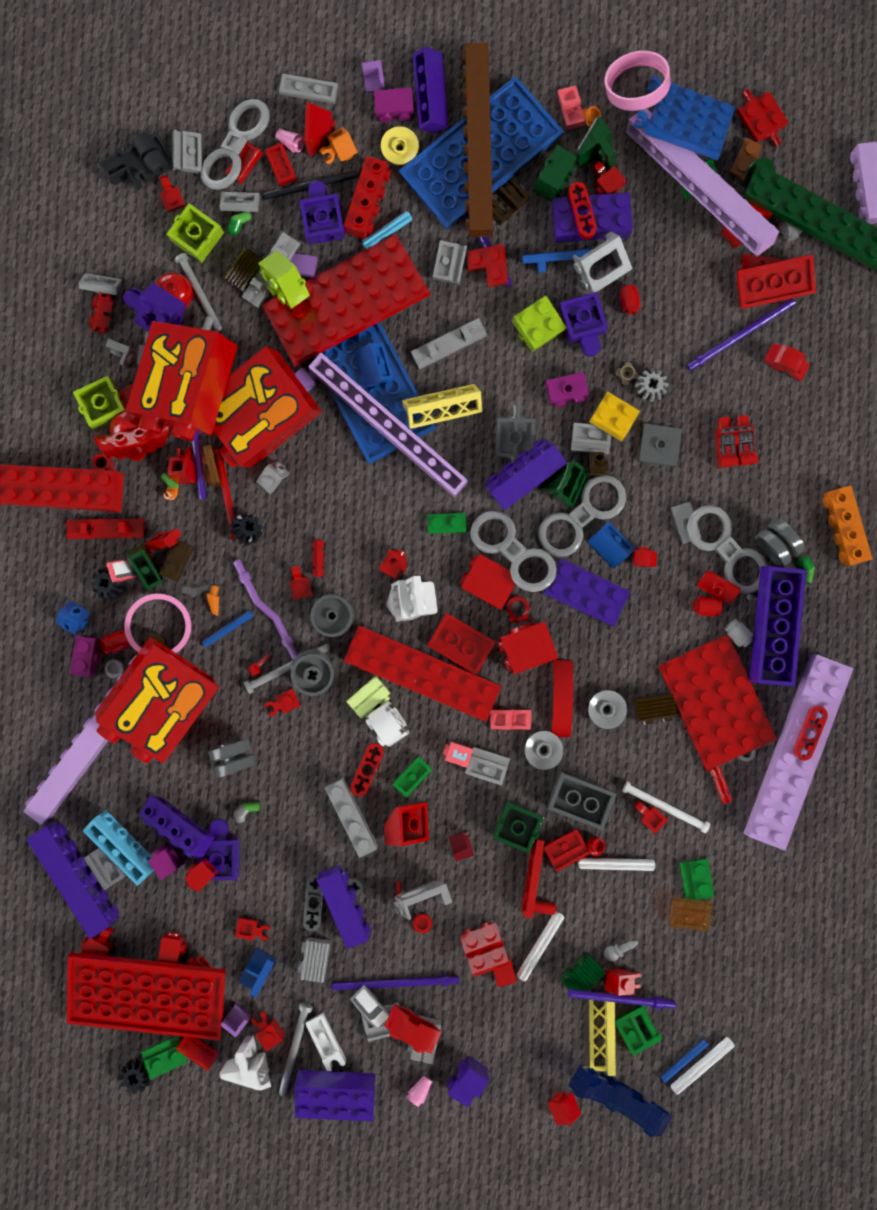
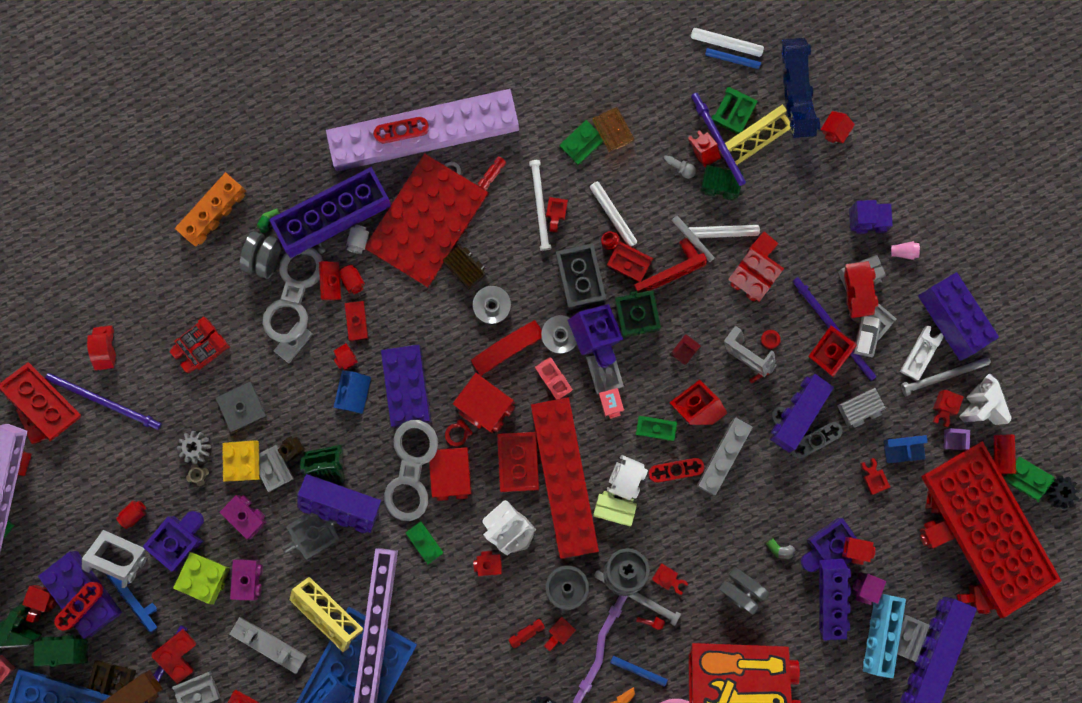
camera: 120 degrees left, 5 degrees down
(377, 969) = (832, 350): none -> red slope
(513, 359) = (246, 579): none -> magenta brick
(518, 787) = (604, 335): none -> dark purple brick
(551, 917) = (692, 238): none -> light grey bar
(582, 515) = (343, 432): light grey bar -> none
(669, 587) = (356, 320): none -> red plate

